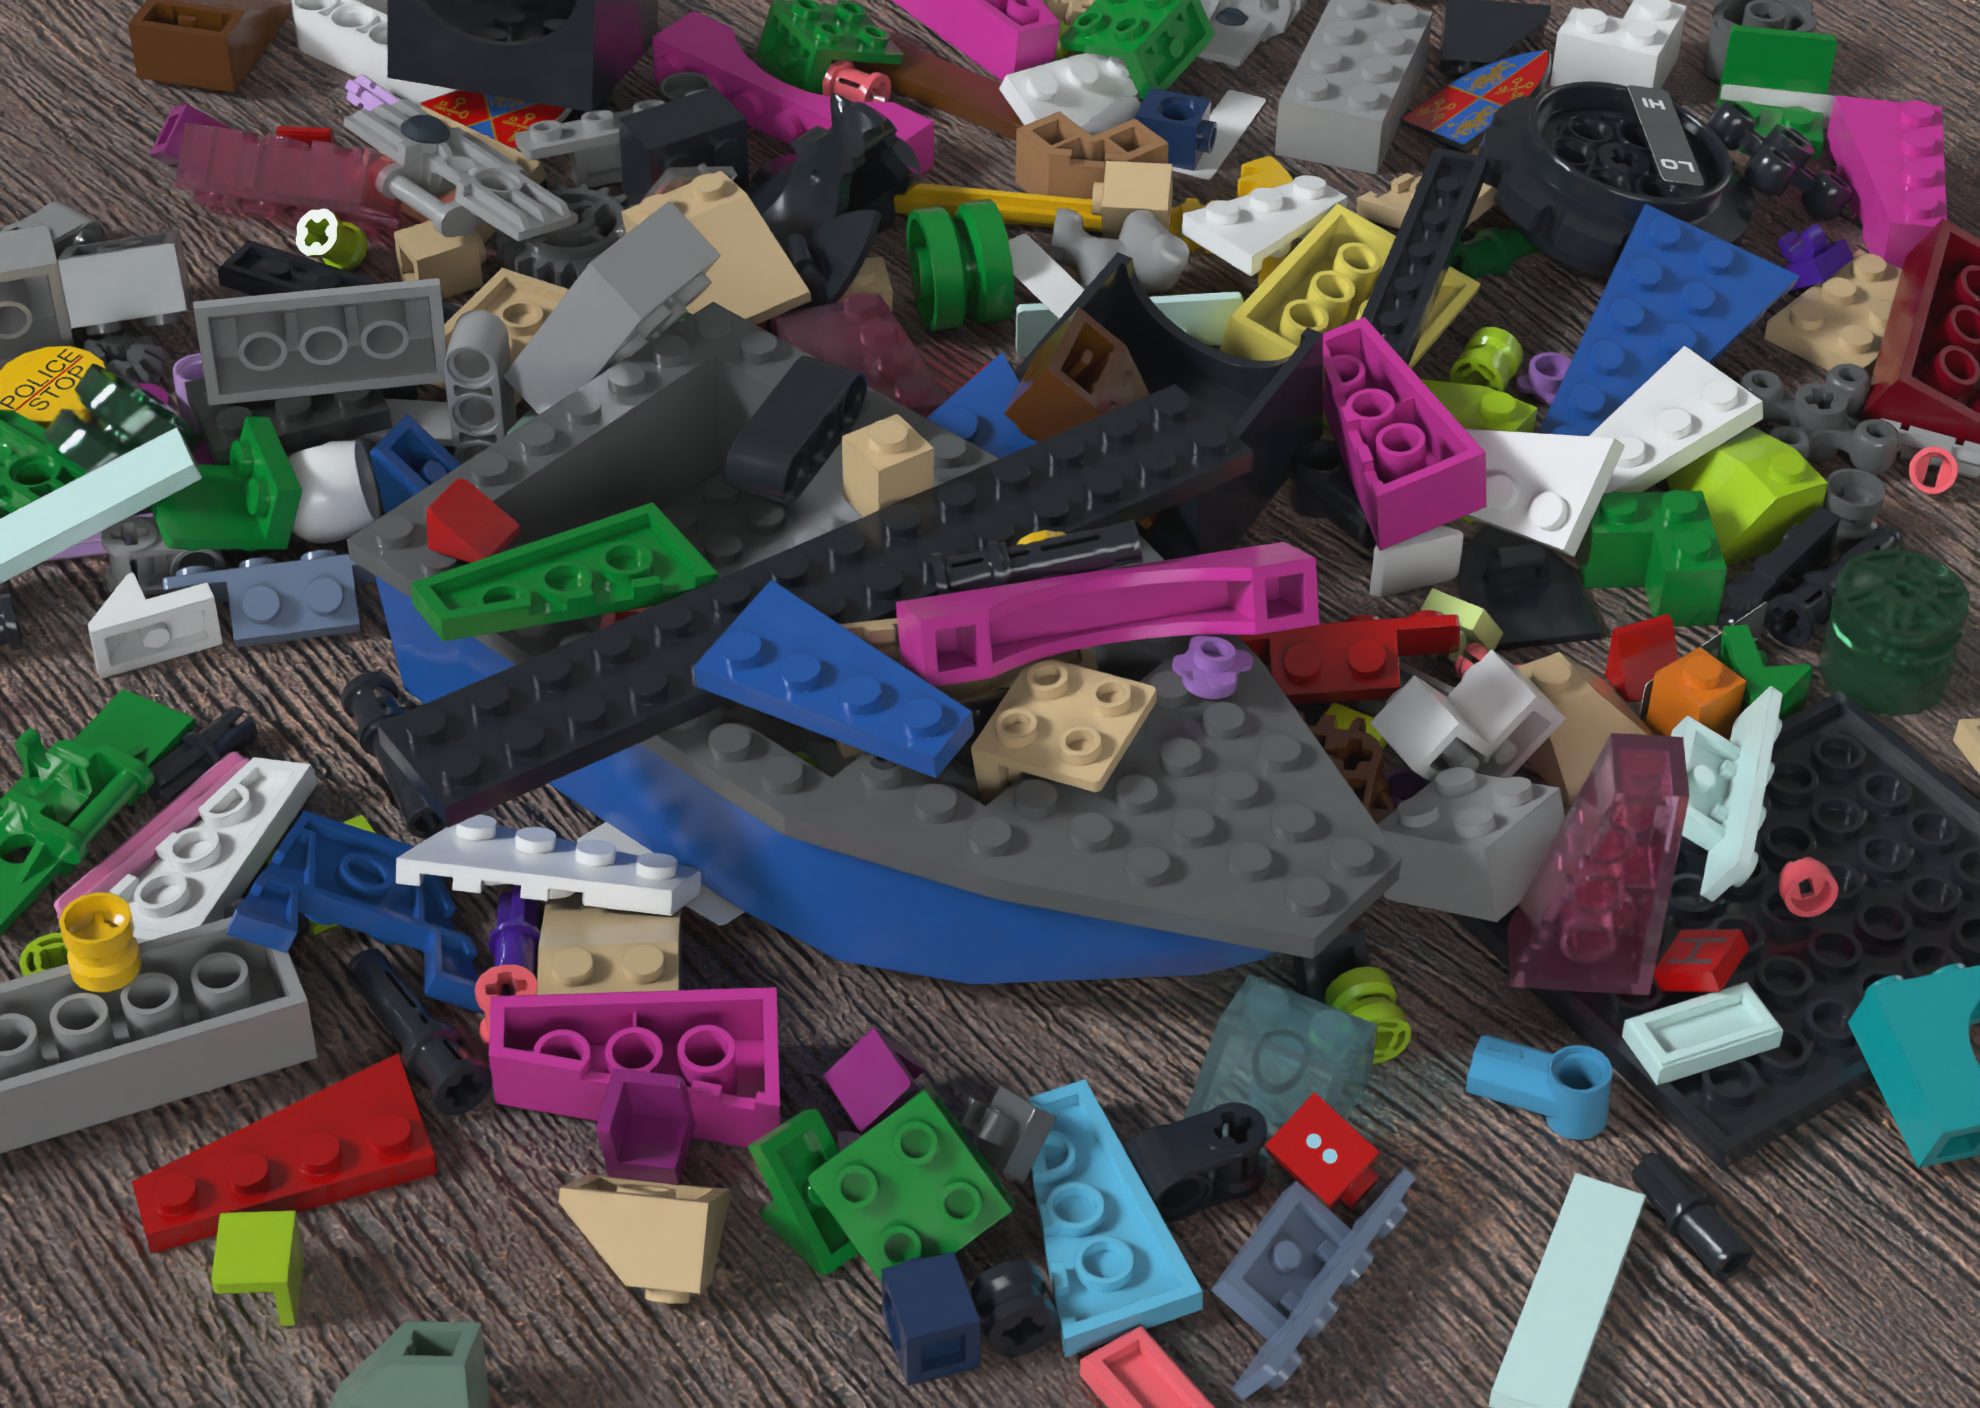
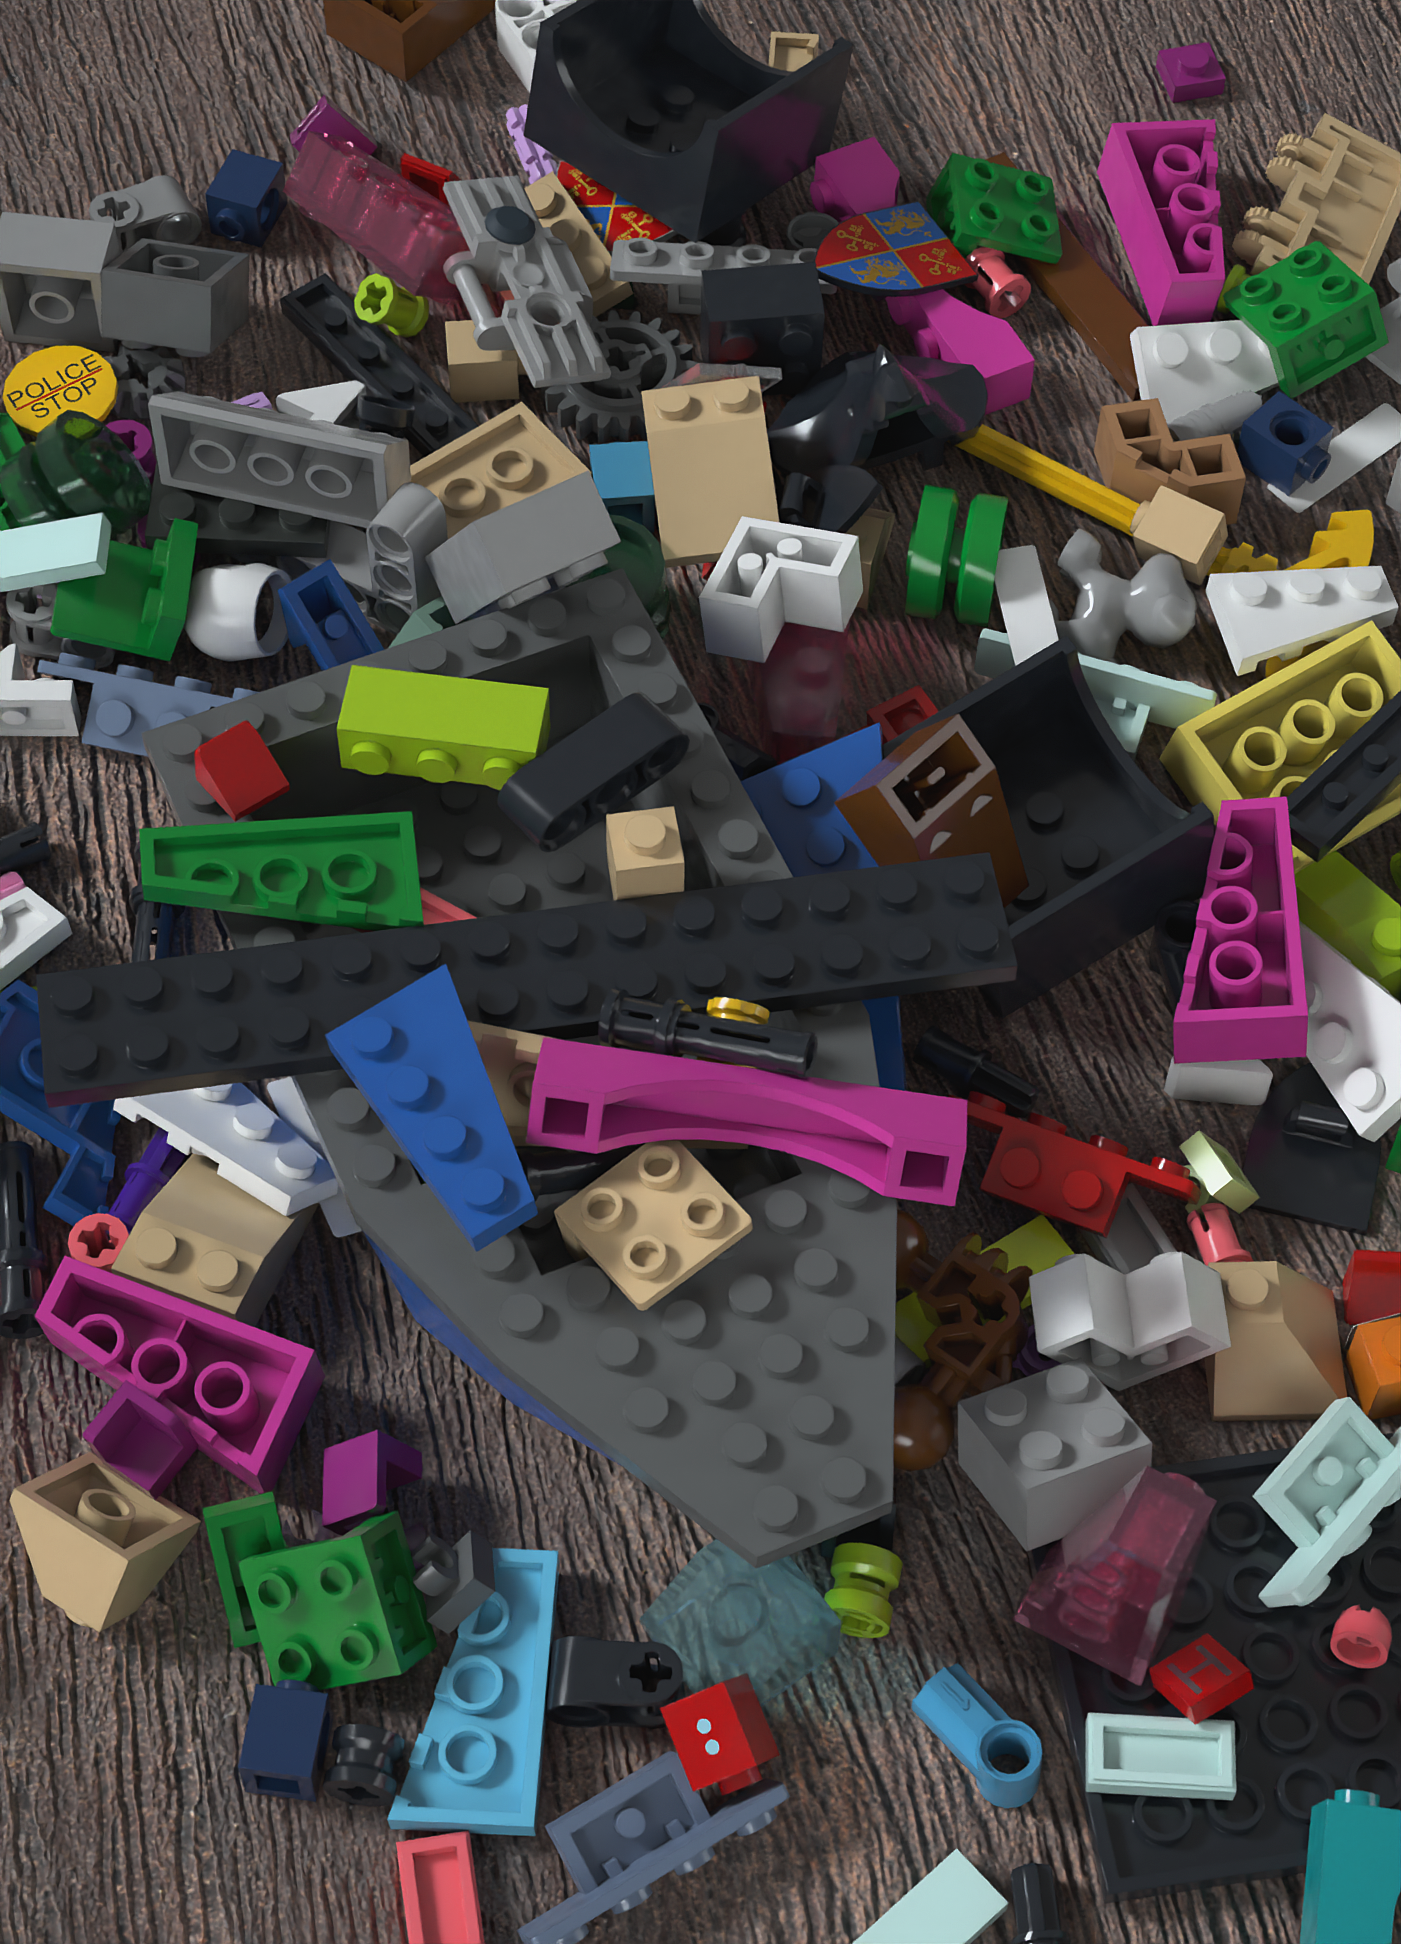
camera: 25 degrees right, 15 degrees up
(139, 199) = (246, 198): none -> dark blue brick
(638, 437) = (440, 726): none -> lime brick
(766, 78) = (891, 254): none -> shield
(843, 295) = (776, 577): none -> white brick
(1211, 667) = (824, 1226): medium lavender plate -> none

